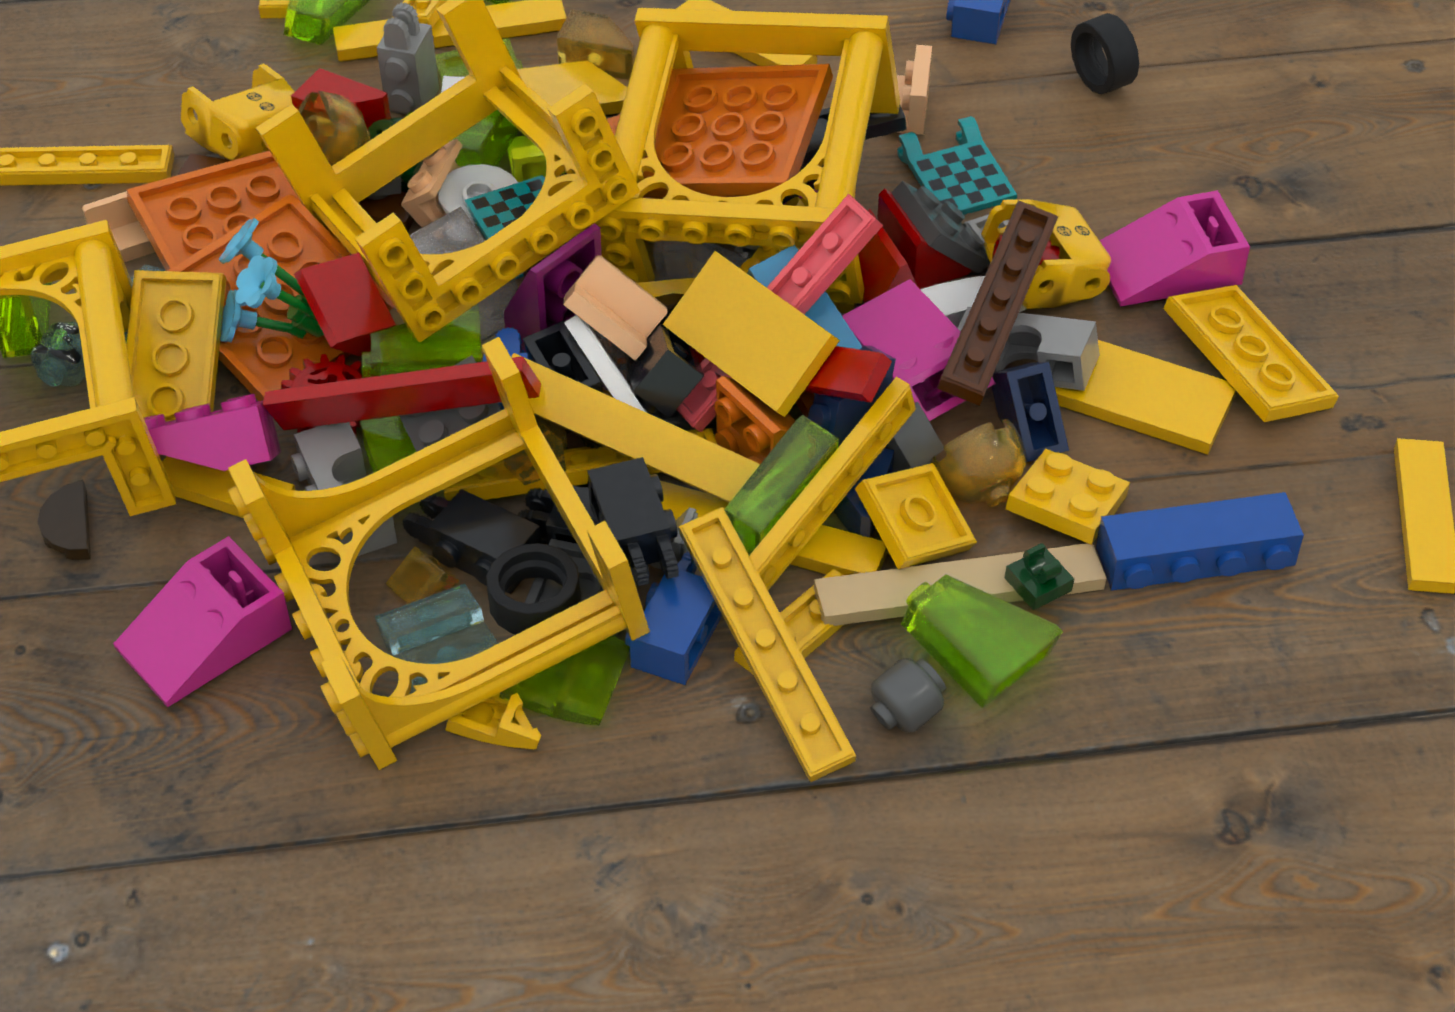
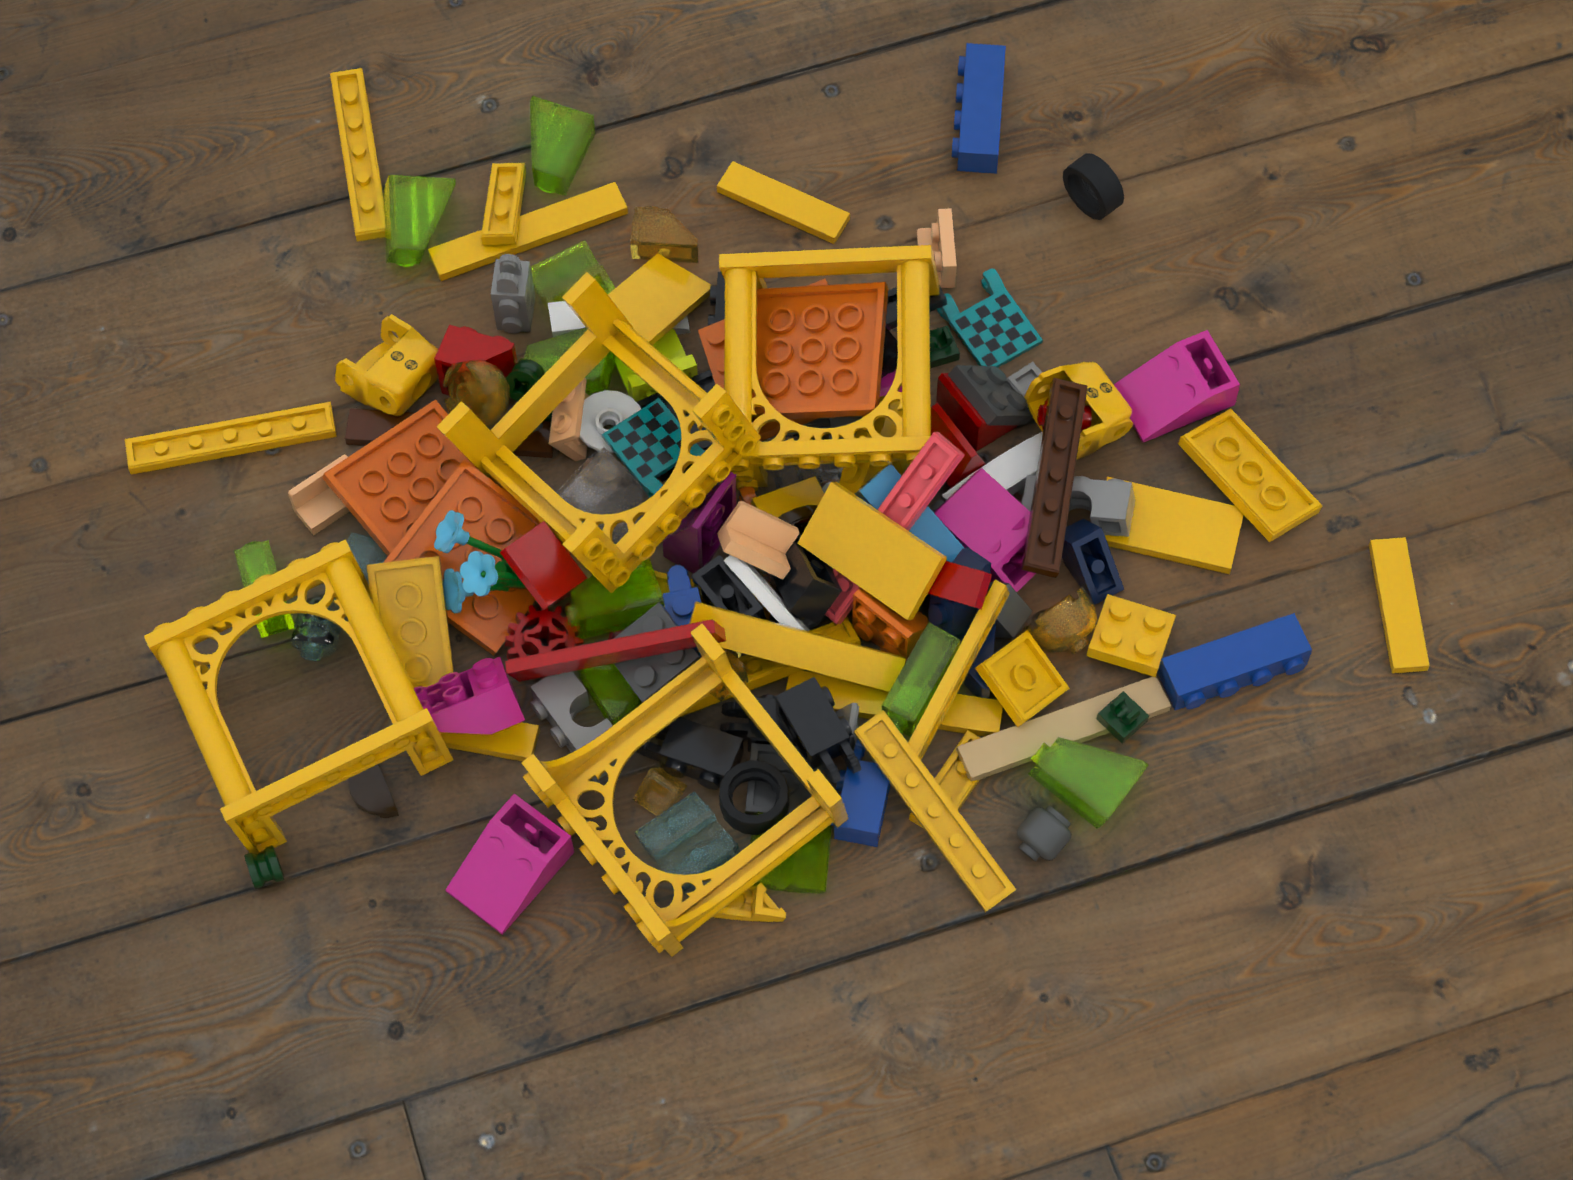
camera: 10 degrees left, 15 degrees up
(885, 177) = (942, 347): none -> dark green tile

